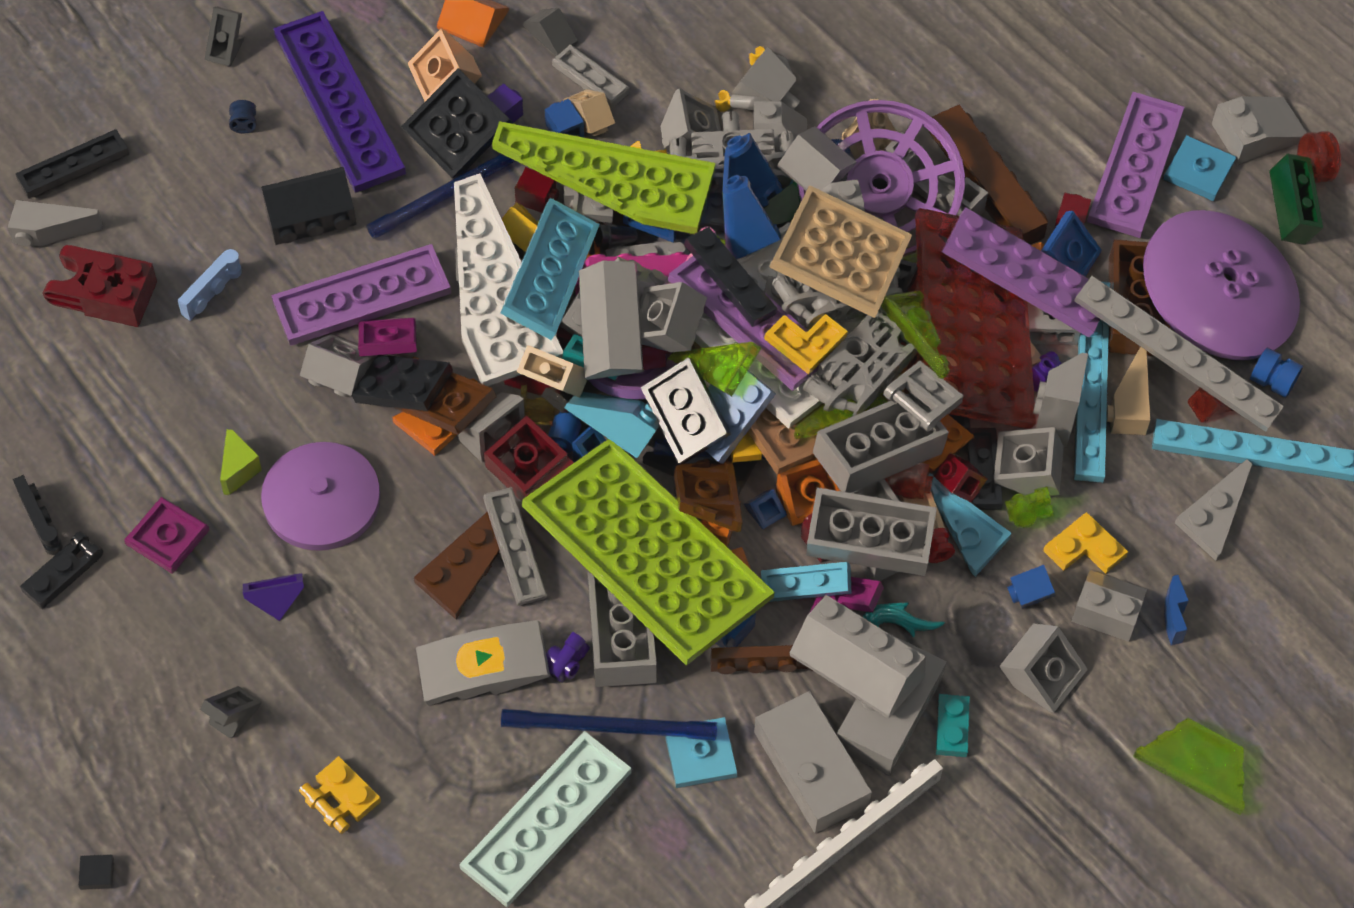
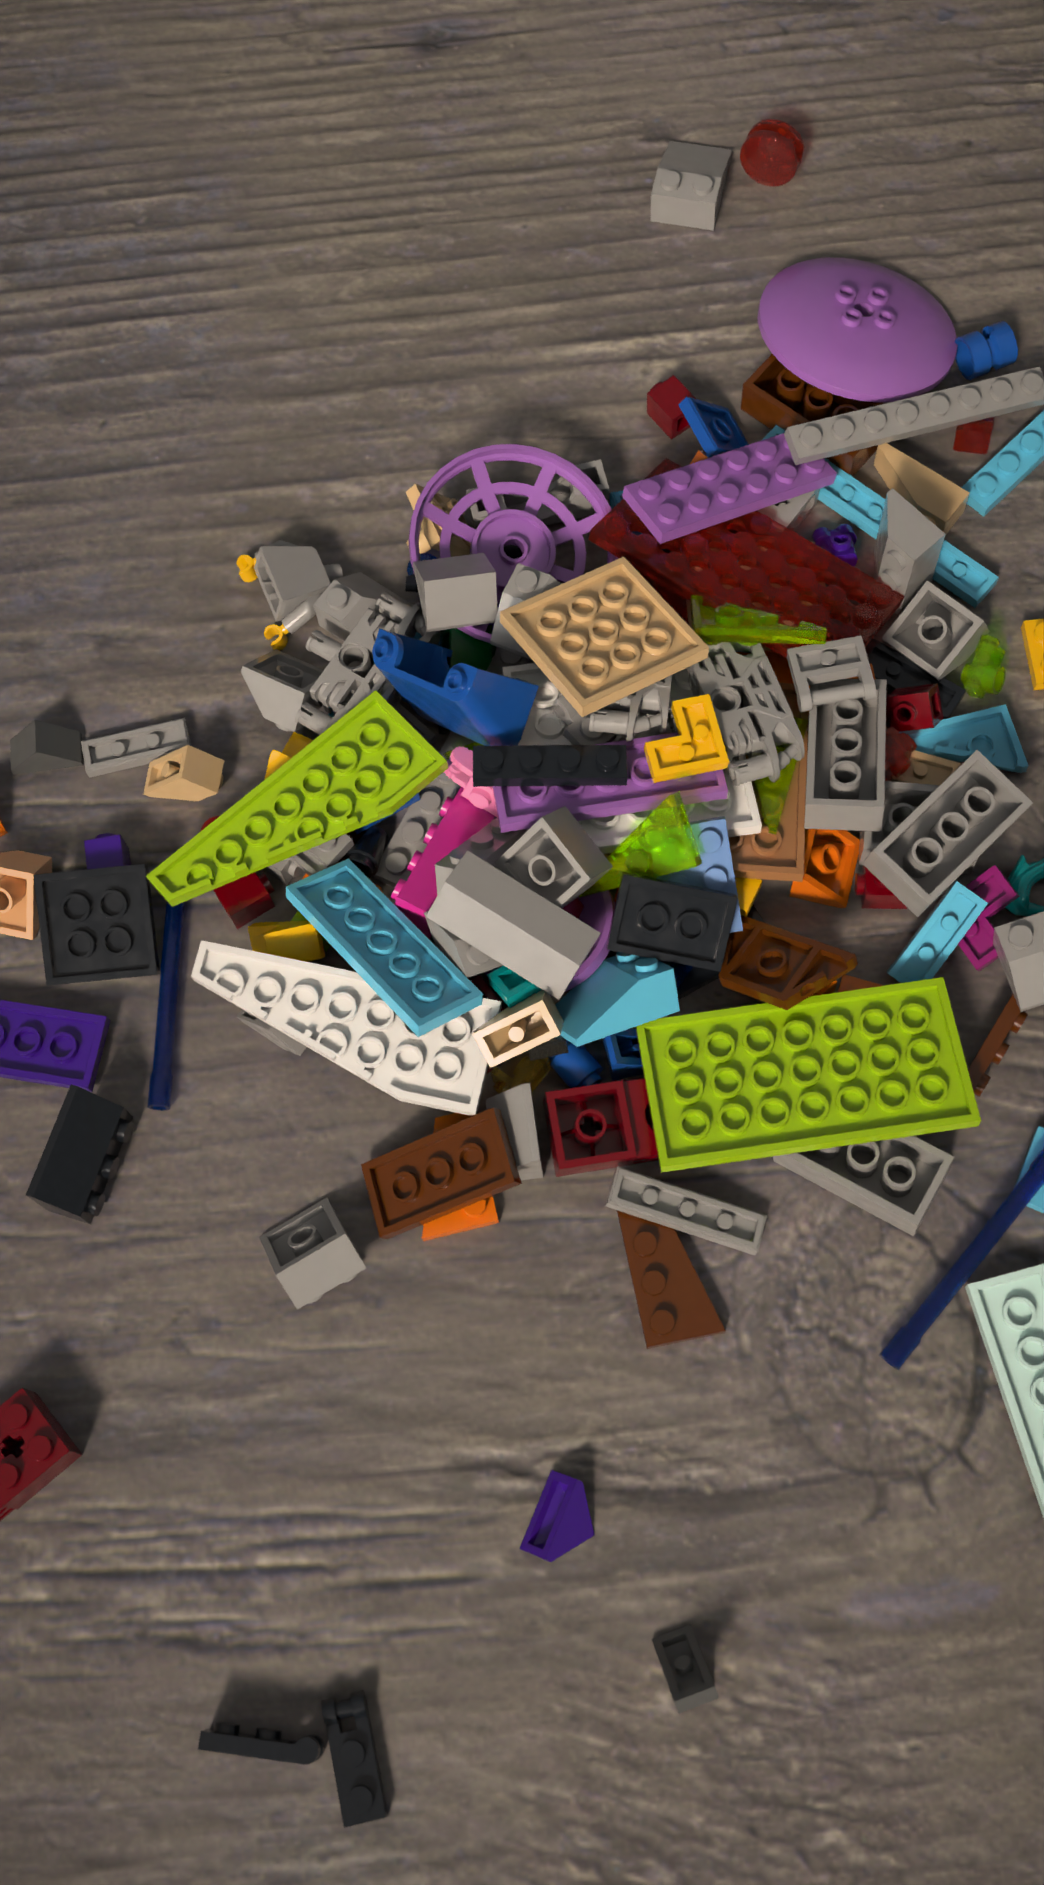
camera: 45 degrees left, 10 degrees up
(166, 535) = (396, 1600): magenta plate -> none
(210, 283) = (93, 1333): light blue plate -> none
(238, 463) = (360, 1453): lime slope -> none
(320, 496) = (465, 1384): medium lavender dish -> none
(347, 789) = (870, 1595): yellow plate -> none
(361, 294) = (234, 1172): medium lavender plate -> none
(387, 336) = (318, 1178): magenta plate -> none
(402, 382) = (395, 1200): black plate -> none
(482, 662) = (809, 1340): light grey slope -> none
(564, 119) = (178, 811): blue brick -> none
(564, 662) = (864, 1252): dark purple plate -> none
(766, 508) = (807, 918): blue slope -> none
(1006, 199) = (625, 452): reddish brown brick -> none
(1135, 164) = (652, 311): medium lavender plate -> none
(1199, 168) = (696, 263): dark azure plate -> none
(1296, 199) = (804, 203): dark green brick -> none

